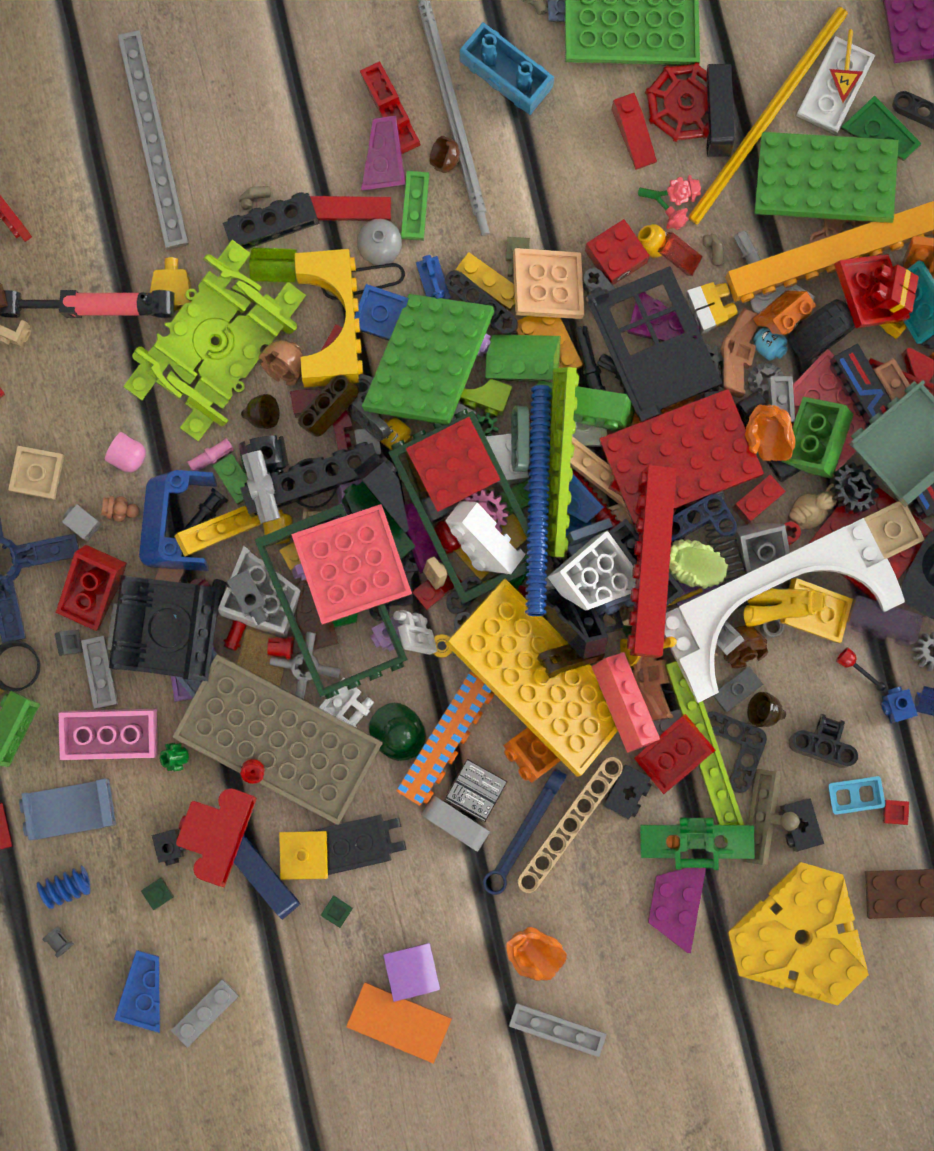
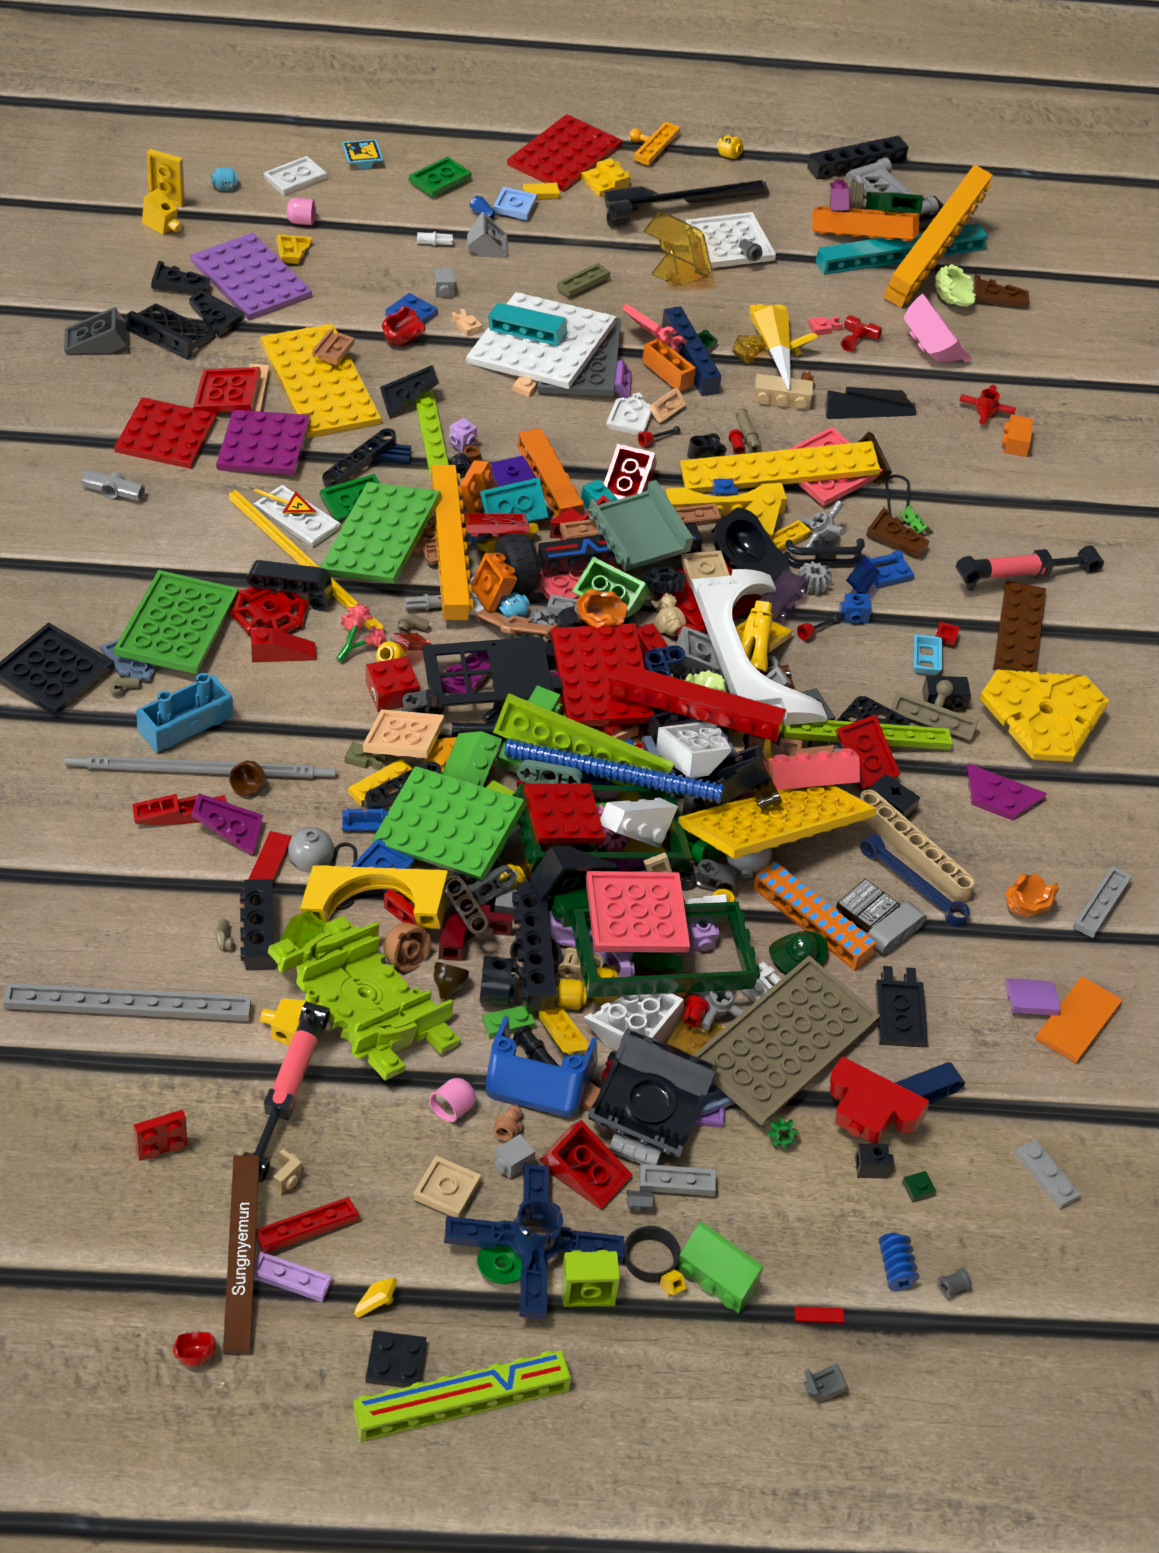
camera: 80 degrees left, 35 degrees down
(67, 810) = (815, 1240): sand blue panel -> none
(108, 734) = (746, 1182): bright pink brick -> none
(140, 995) = (1020, 1223): blue wing -> none
(210, 455) = (479, 1032): bright pink pin -> none
(243, 586) = (641, 1008): dark grey torso -> none
(252, 771) = (815, 1060): red tile -> none
(260, 486) = (535, 970): light grey piece -> none
(303, 855) = (903, 1050): yellow plate -> none
(336, 911) = (964, 1039): dark green plate -> none
(415, 205) = (286, 813): bright green plate -> none
(530, 755) = (840, 852): orange plate -> none
(696, 833) = (941, 757): green piece -> none
(708, 308) = (465, 632): hips -> none
(765, 710) = (840, 689): dark brown helmet -> none
(827, 732) = (878, 661): black piece -> none
(895, 290) = (503, 506): red hips -> none

